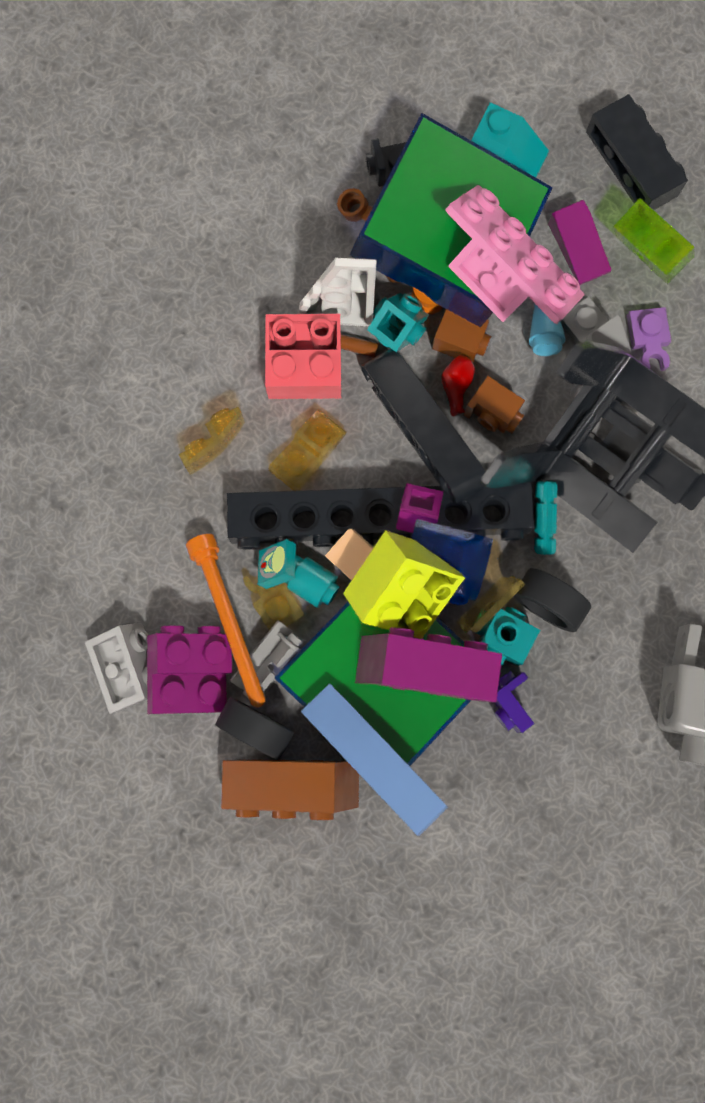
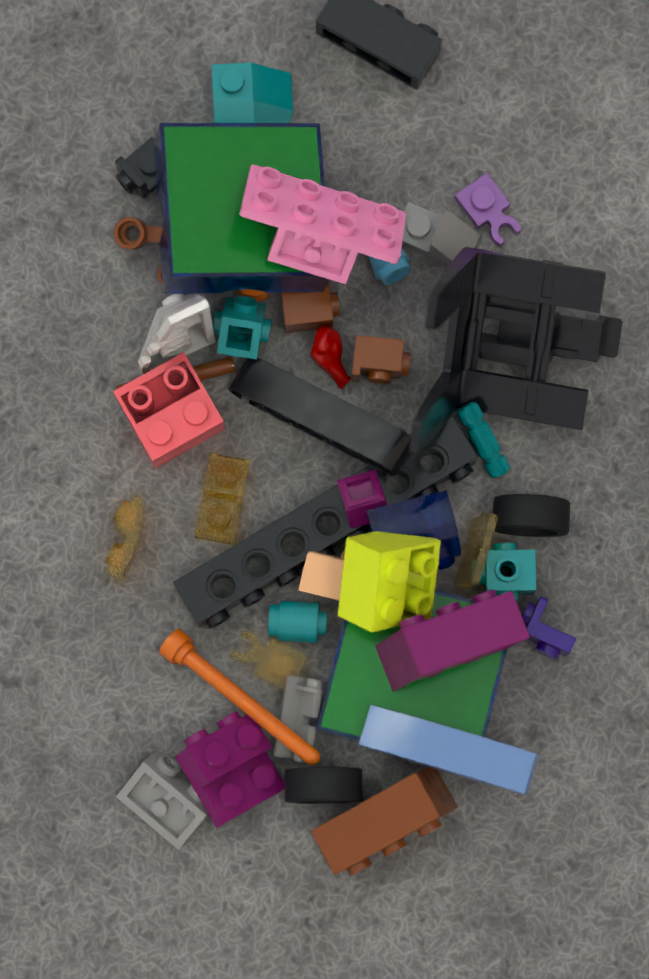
camera: 30 degrees left, 0 degrees up
(276, 564) = (257, 623): teal tile -> none
(579, 242) = (371, 152): magenta slope -> none
(654, 241) = (441, 117): clear neon green brick -> none

